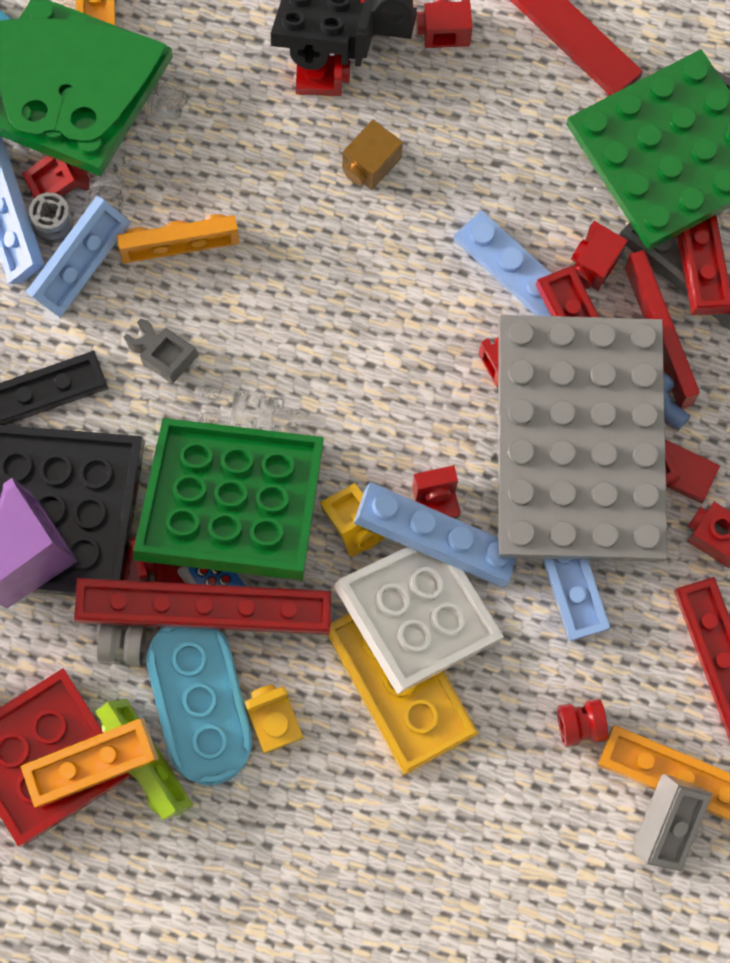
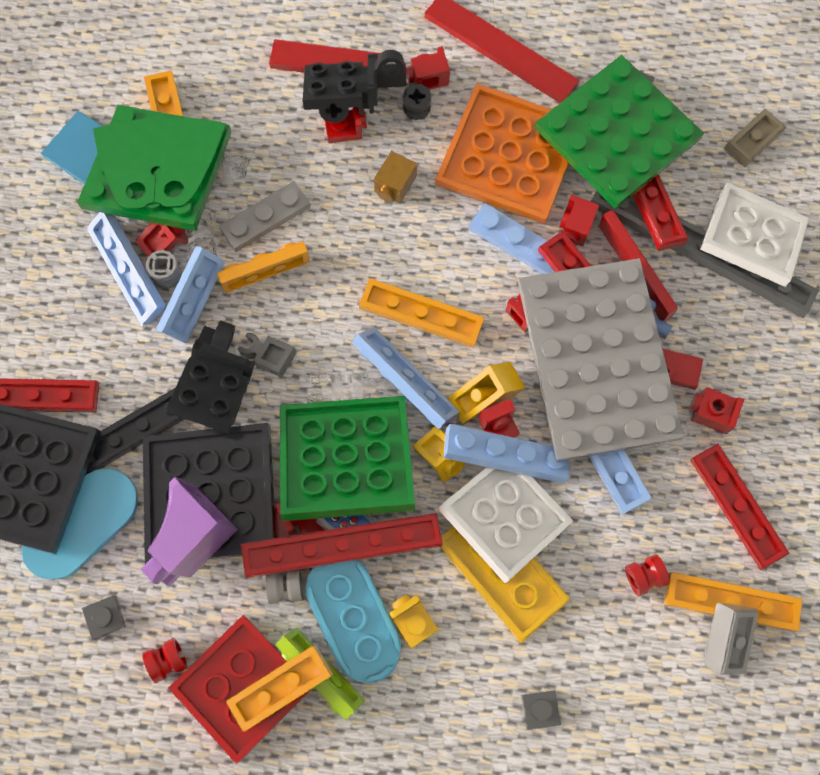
camera: 10 degrees left, 0 degrees up
(83, 370) = (212, 381): none -> black plate
(193, 173) = (264, 216): none -> light grey plate
(330, 414) = (405, 377): none -> light blue plate
(368, 336) = (421, 312): none -> light orange plate
(410, 861) = (541, 710): none -> dark grey plate
(421, 71) = (411, 106): none -> black wheel
(429, 448) = (486, 389): none -> yellow slope
(518, 154) = (502, 156): none -> orange plate

